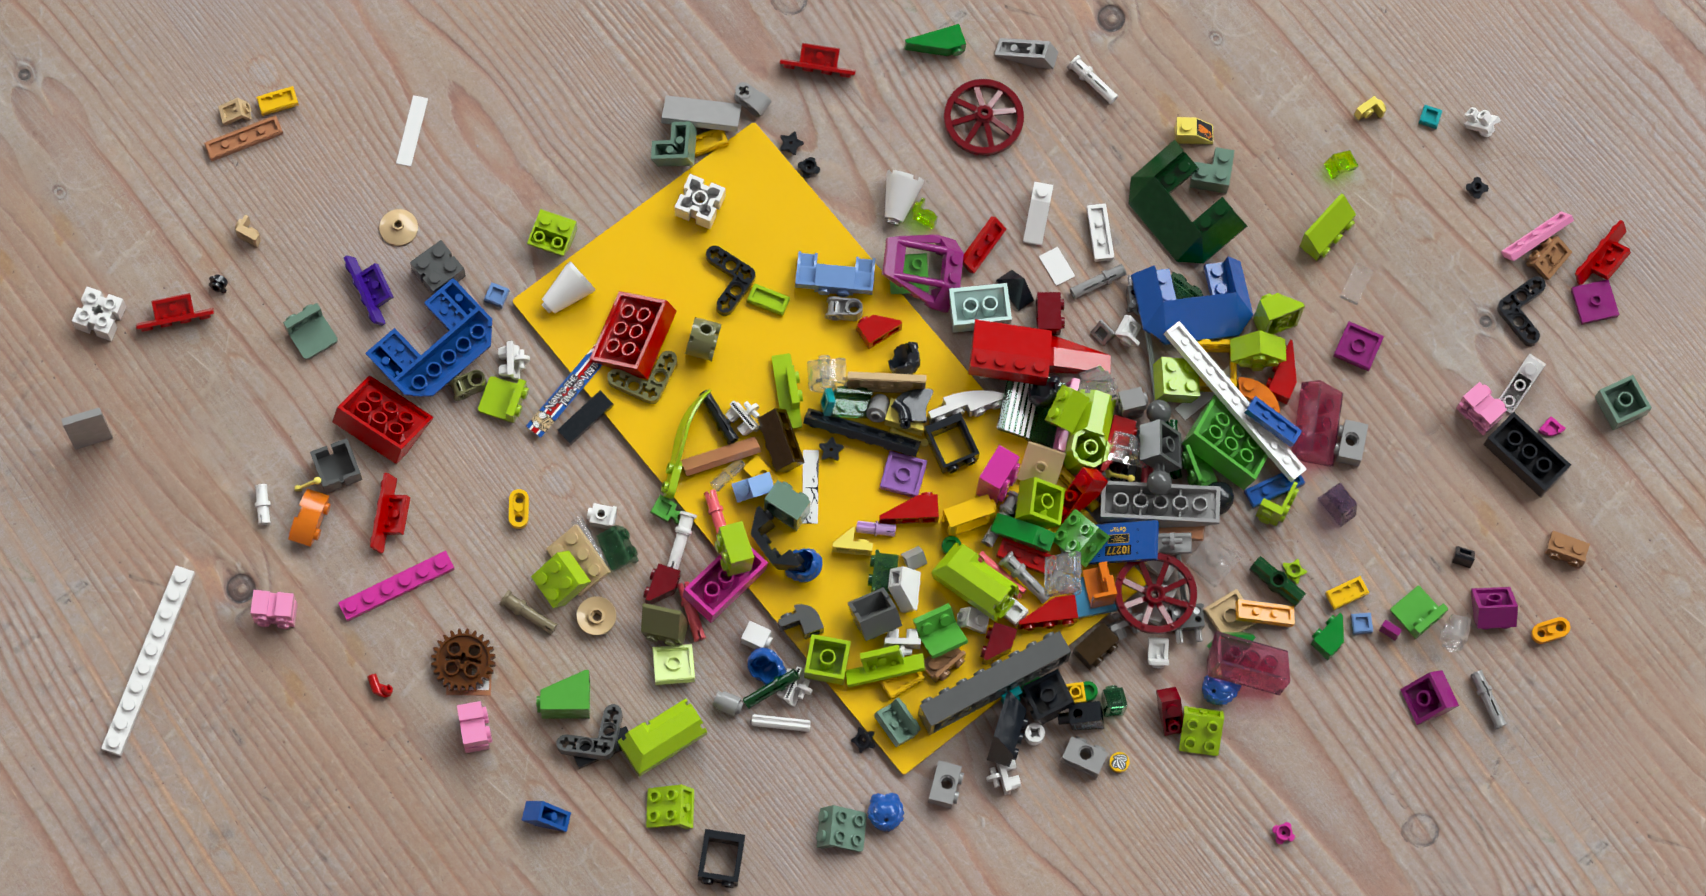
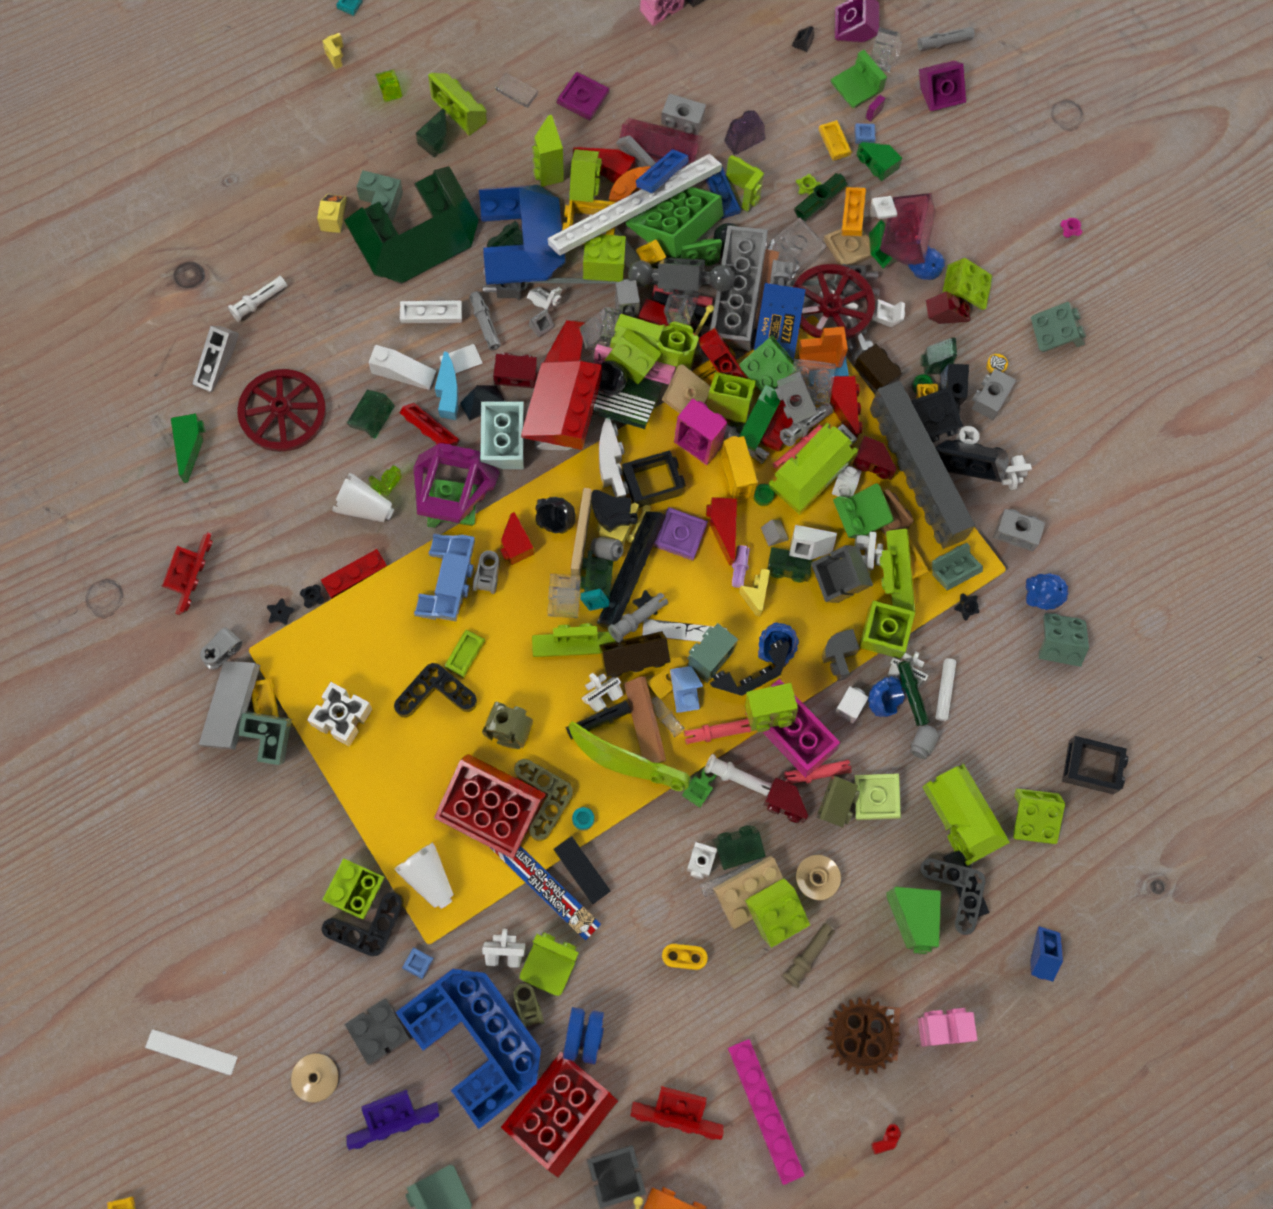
camera: 85 degrees left, 0 degrees up
(445, 428) = (584, 1035): none -> blue wheel
(517, 255) = (374, 932): none -> black beam
(629, 413) = (583, 818): none -> teal tile
(807, 432) = (630, 622): none -> light grey pin
(834, 199) = (353, 573): none -> red plate
(989, 193) = (371, 413): none -> clear green bracket
(1023, 256) = (447, 389): none -> medium azure slope
(1042, 559) = (792, 386): none -> light grey brick
(1166, 821) = (1058, 327): none -> sand green bracket
(1185, 421) = (651, 252): none -> yellow plate
(1269, 638) = (883, 208): none -> white bracket
(1291, 213) = (434, 135): none -> clear green slope
(1294, 398) = (631, 147): none -> light grey tile

